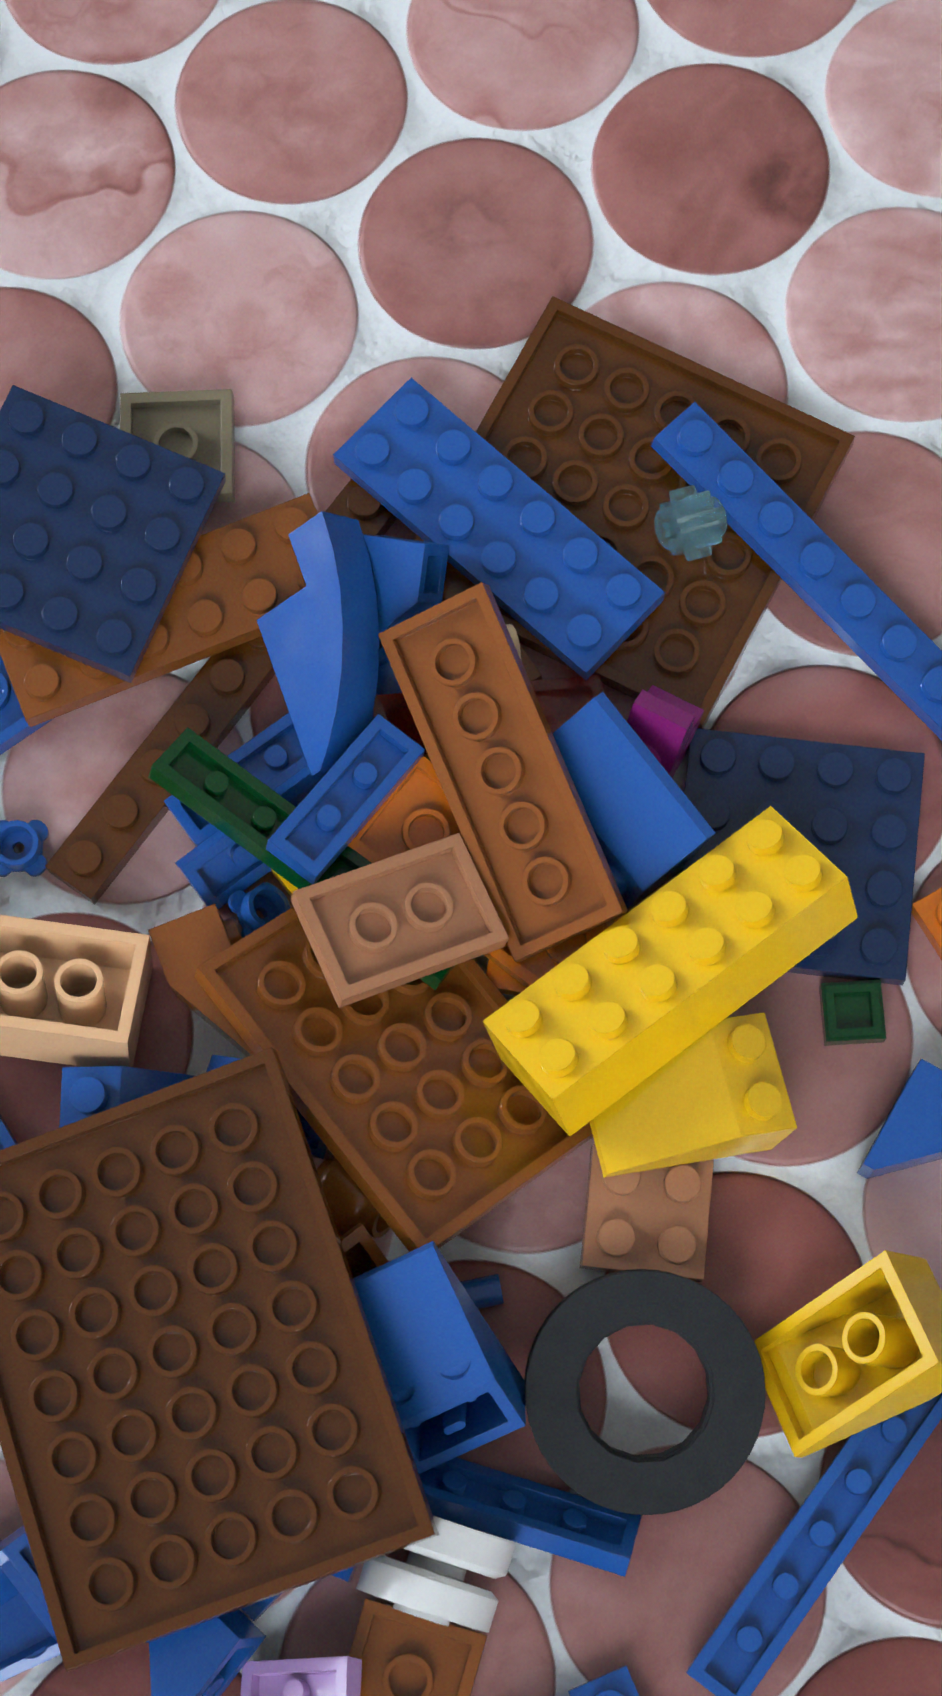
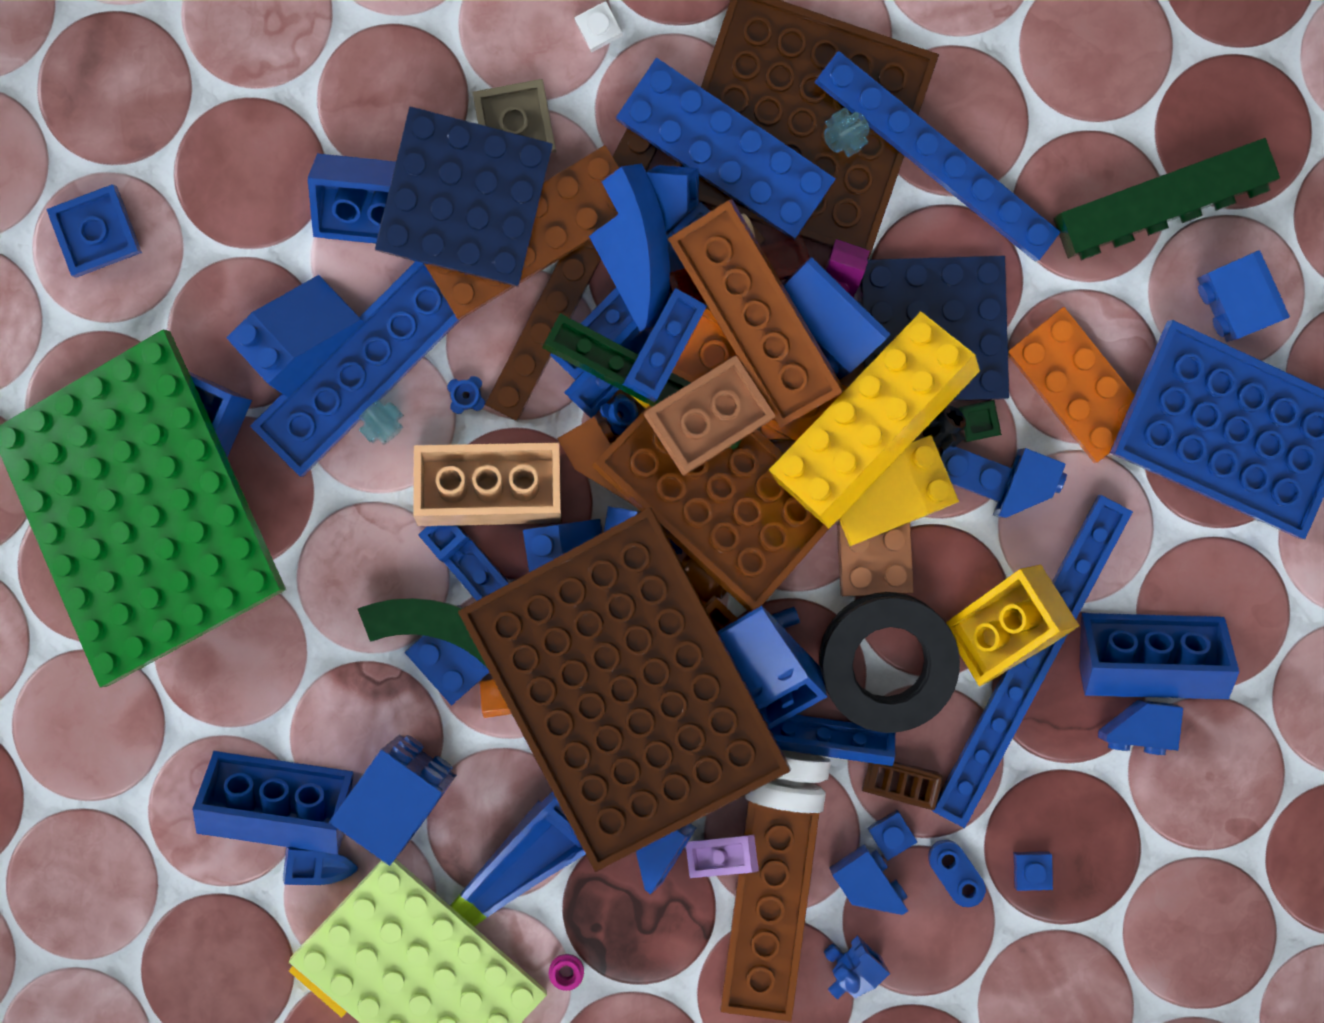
camera: 15 degrees left, 15 degrees up
(333, 331) = (598, 26): none -> white plate
(689, 1633) = (913, 798): none -> reddish brown slope
(793, 1008) = (947, 428): none -> black gear
(834, 1095) = (976, 473): none -> blue plate

